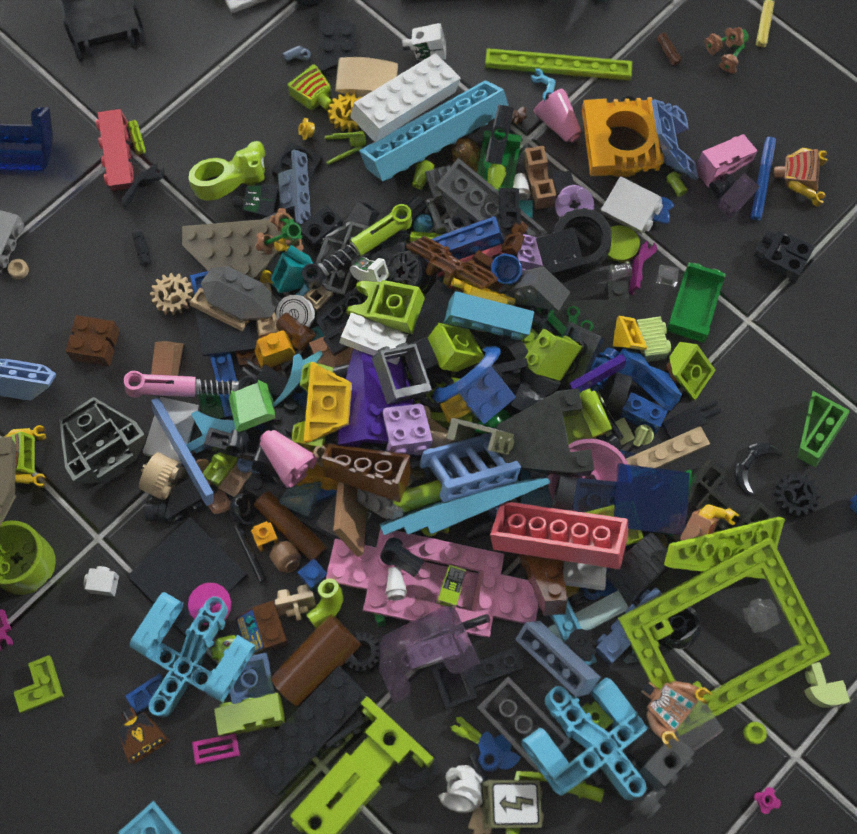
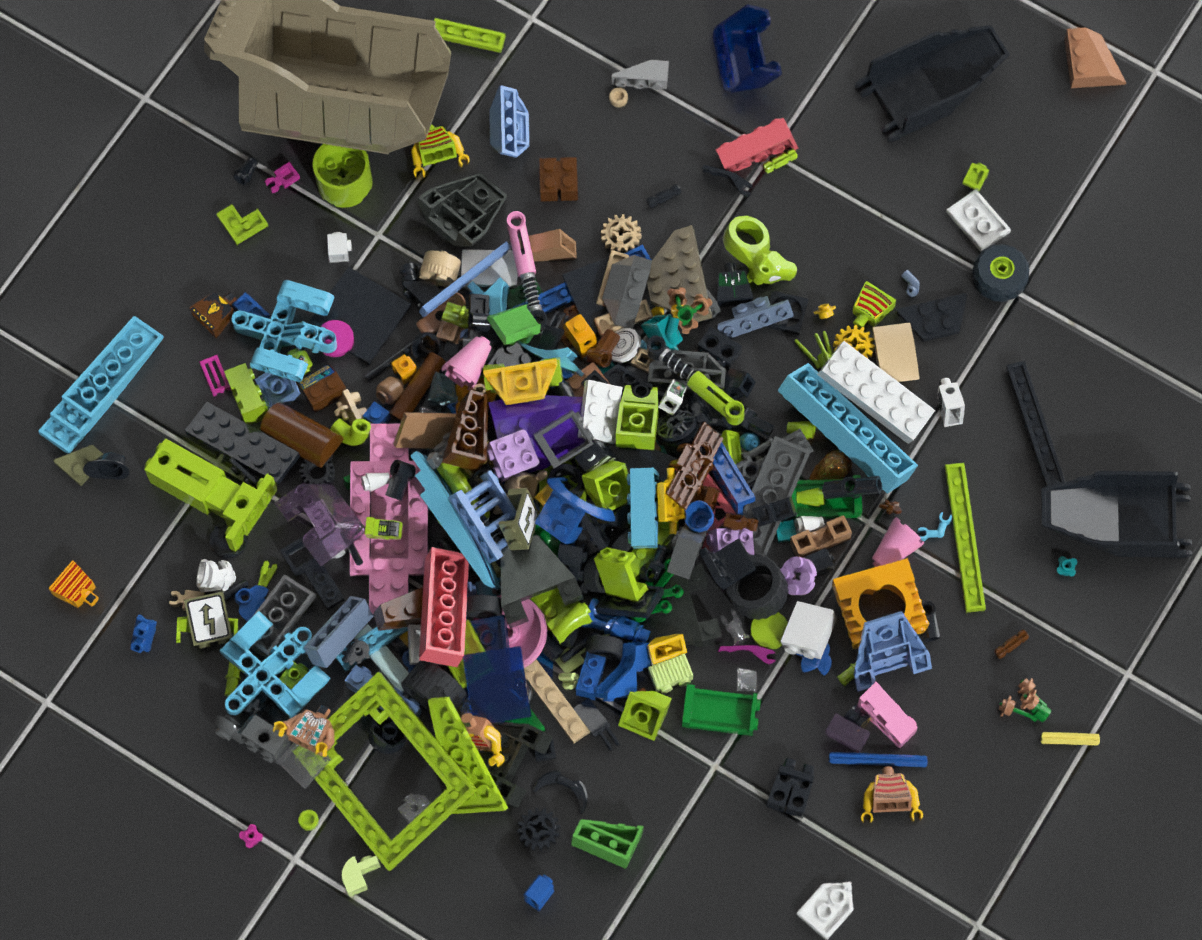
camera: 80 degrees right, 0 degrees up
(599, 373) = (611, 619): dark purple tile -> none

